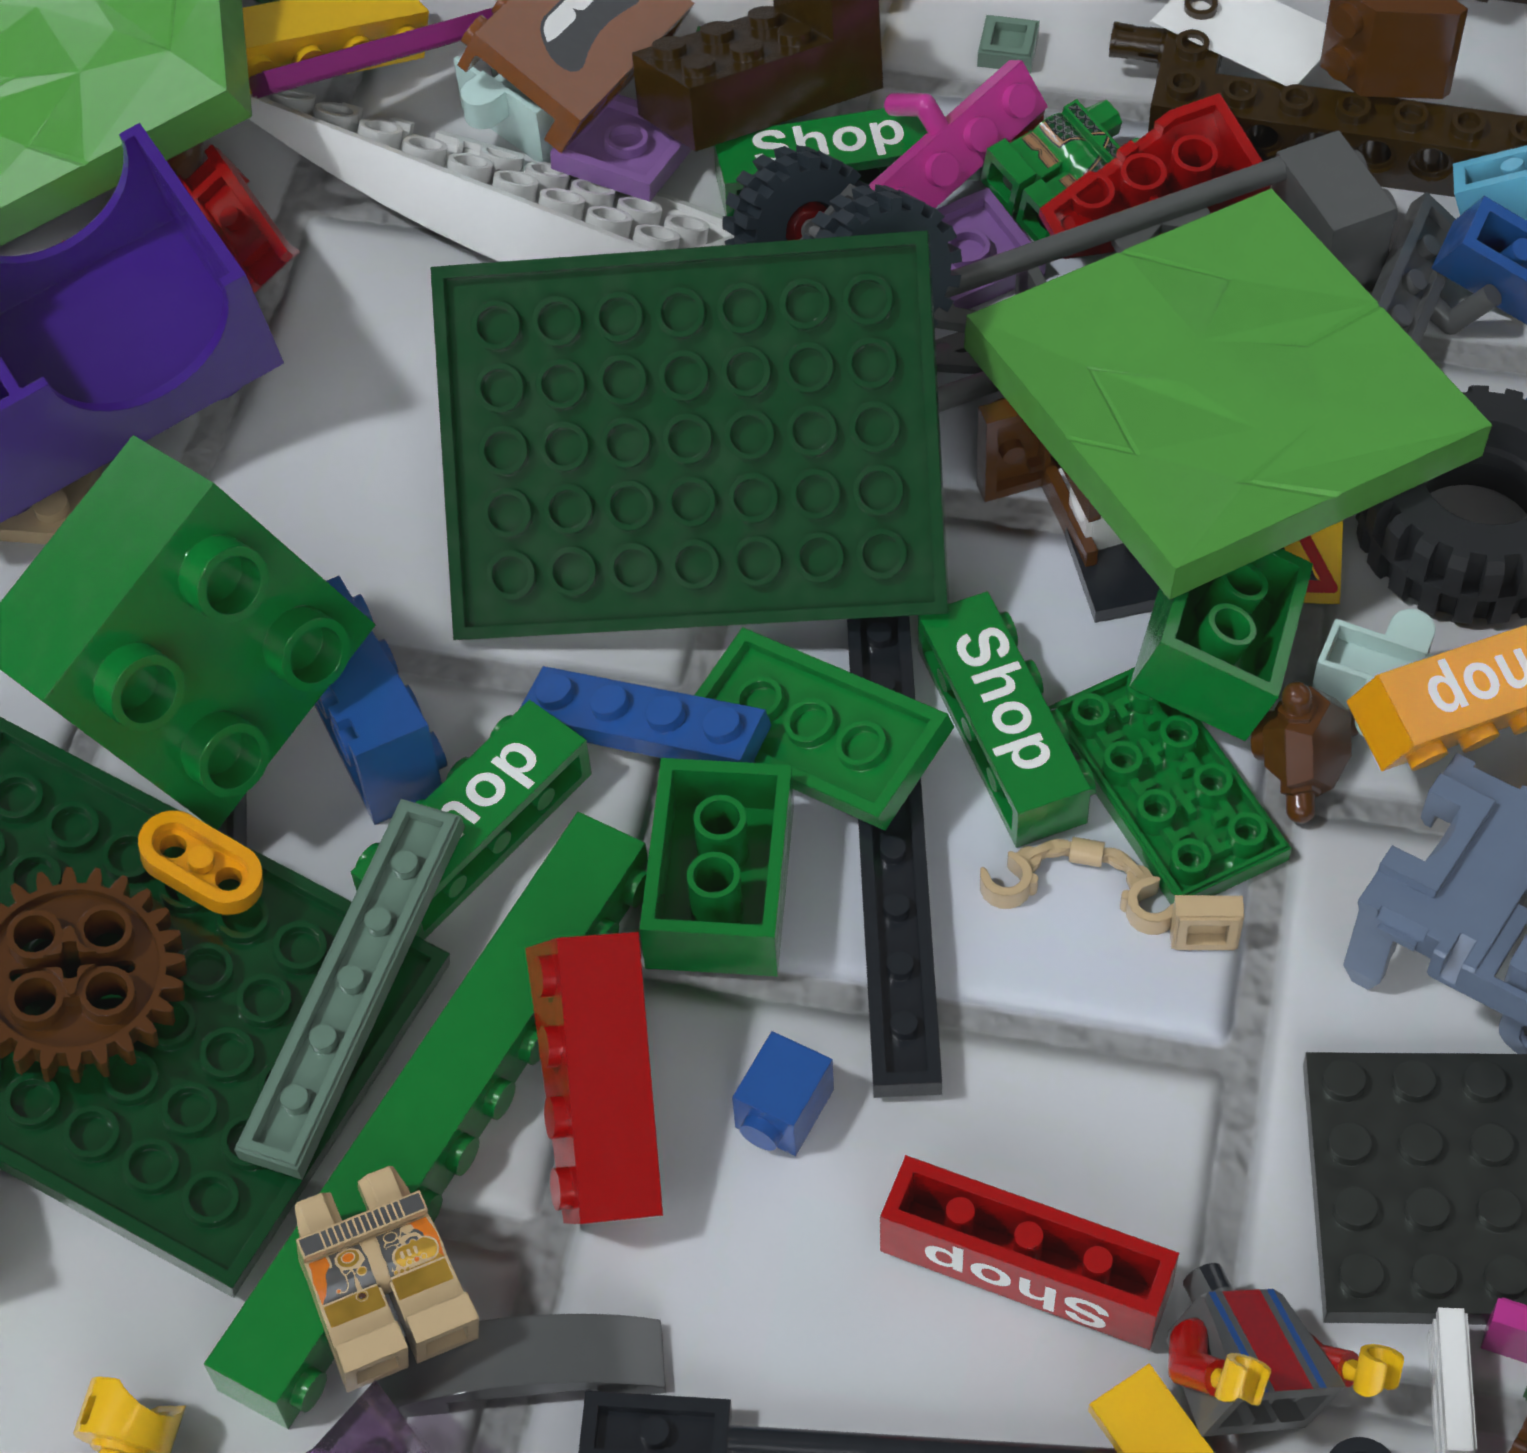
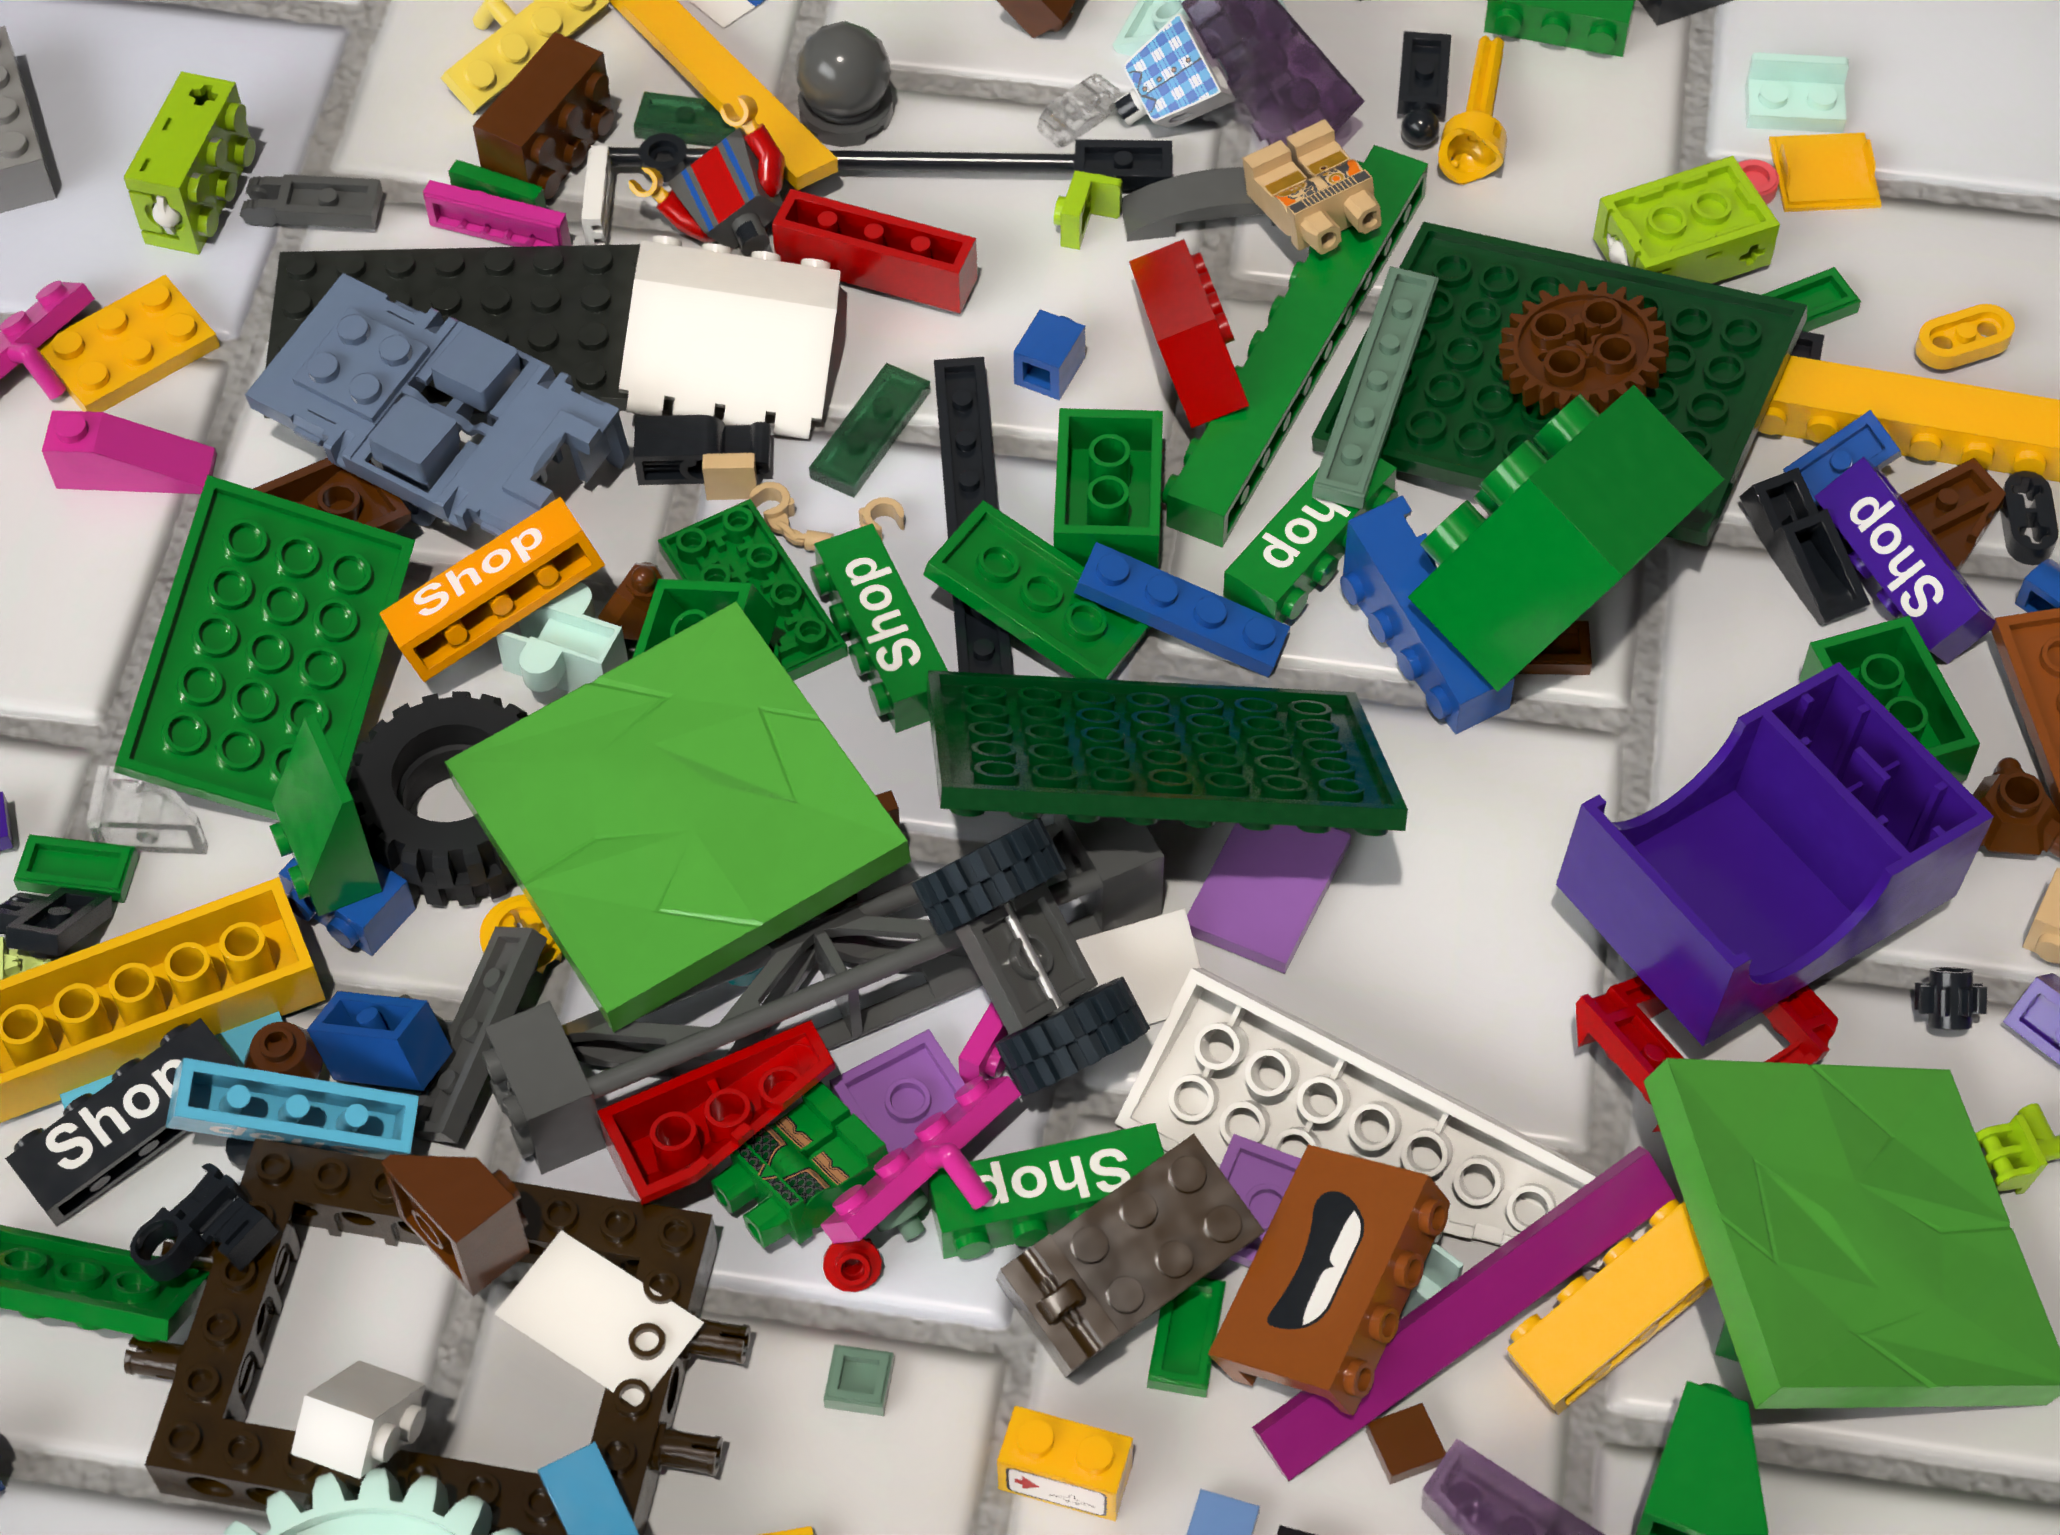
camera: 175 degrees right, 0 degrees up
(204, 864) = (1505, 429): light orange plate -> none
(734, 1340) = (1086, 196): none -> lime bracket
(1026, 1013) = (869, 430): none -> clear green tile
(1228, 1127) = (729, 335): none -> white hinge
(1253, 967) = (673, 446): none -> black piece

